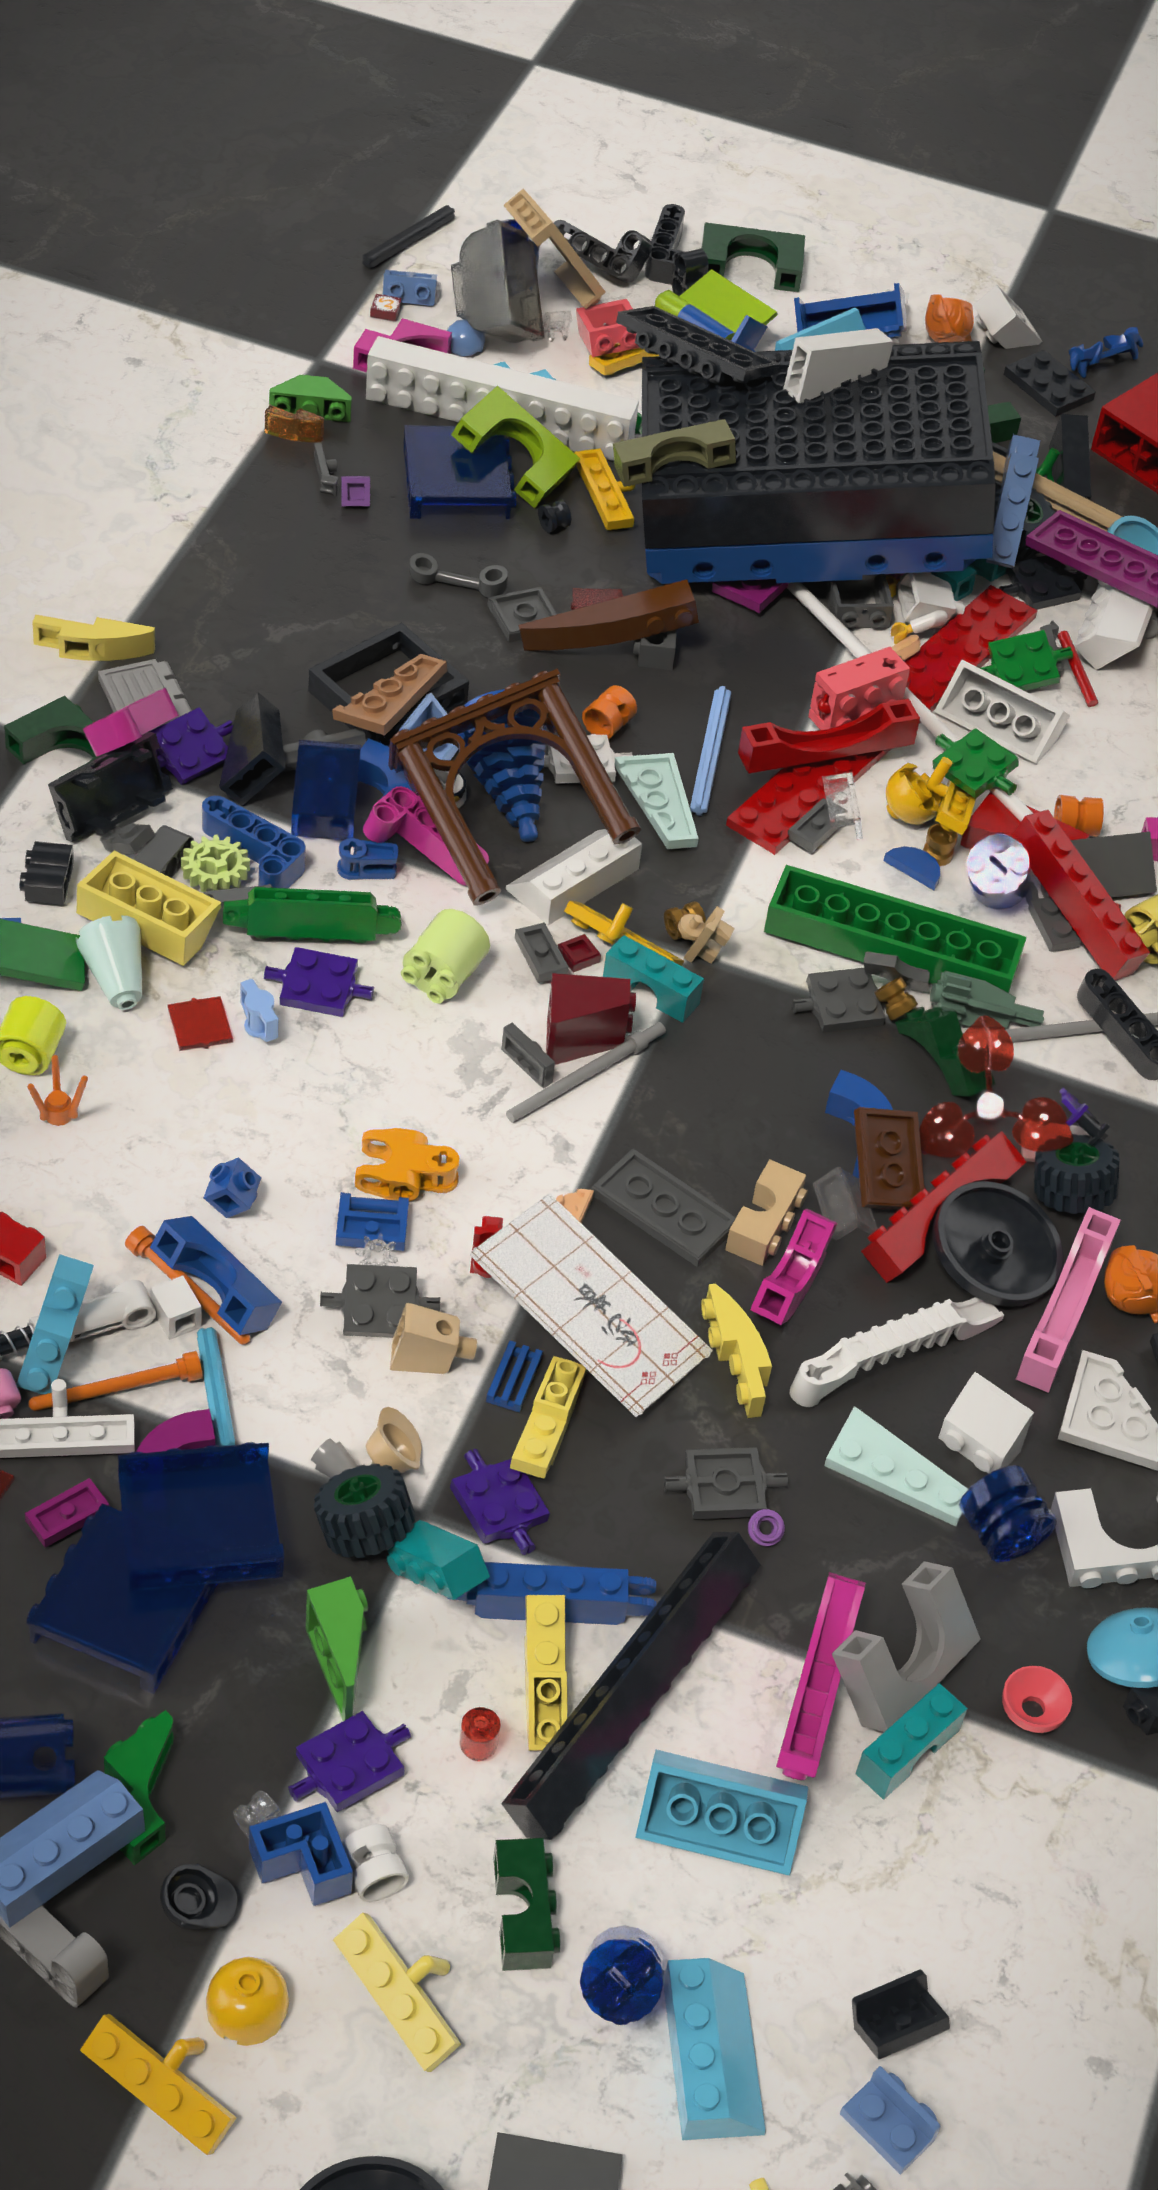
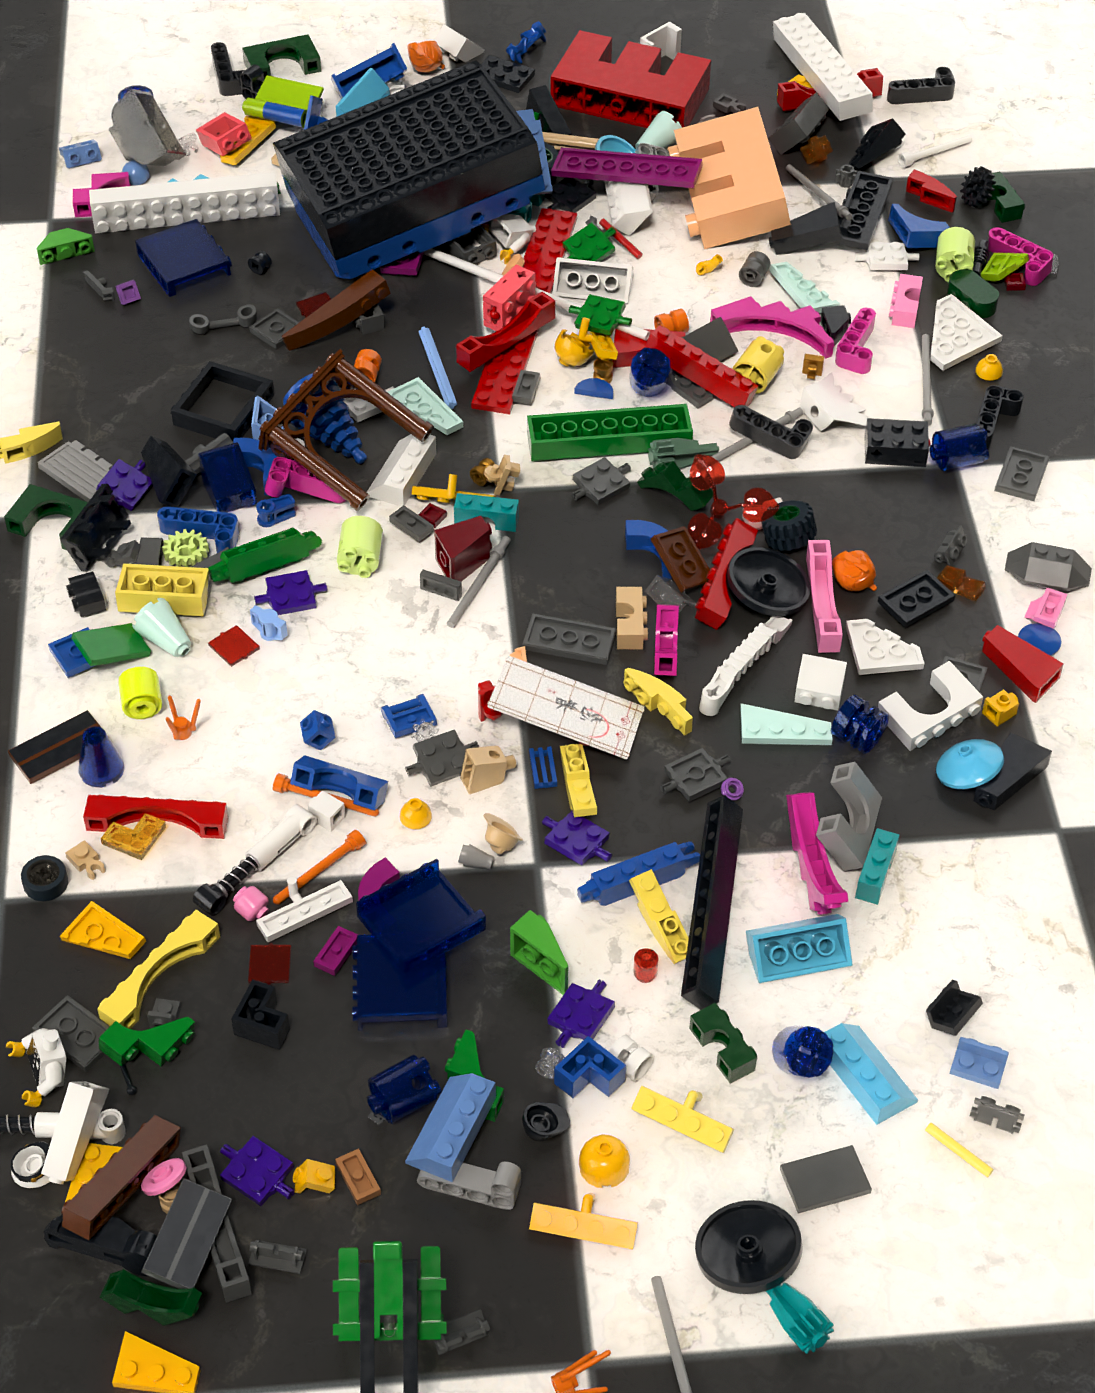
camera: 20 degrees left, 0 degrees up
(55, 1324) = (268, 850): medium azure arch -> none
(130, 722) = (85, 484): dark pink beam -> none
(215, 1387) = (375, 843): medium azure axle -> none
(296, 1366) = (415, 814): none -> yellow brick
(301, 426) = (64, 266): clear orange slope -> none
(364, 1510) = (509, 874): black wheel -> none
(385, 307) = (72, 171): tile -> none
(392, 697) = (235, 407): medium nougat wing -> none
(408, 236) = (58, 122): black axle -> none
(408, 1166) = (410, 674): light orange piece -> none
(438, 1560) = (568, 881): teal brick -> none
(504, 416) = (236, 227): lime arch -> none
(540, 228) = (180, 103): tan panel -> none
(605, 489) = (280, 235): yellow plate -> none
(616, 257) = (184, 87): black beam -> none
(694, 347) = (305, 125): black plate -> none
(705, 443) = (349, 181): olive arch -> none
(829, 359) = (397, 101): white slope -> none
(842, 802) = (535, 367): clear panel -> none
(892, 967) = (624, 452): dark grey tile -> none
(897, 1001) = (631, 468): pearl gold wheel -> none
(1042, 1687) = (932, 809): coral piece -> none
(1083, 1117) = (778, 491): piece -> none

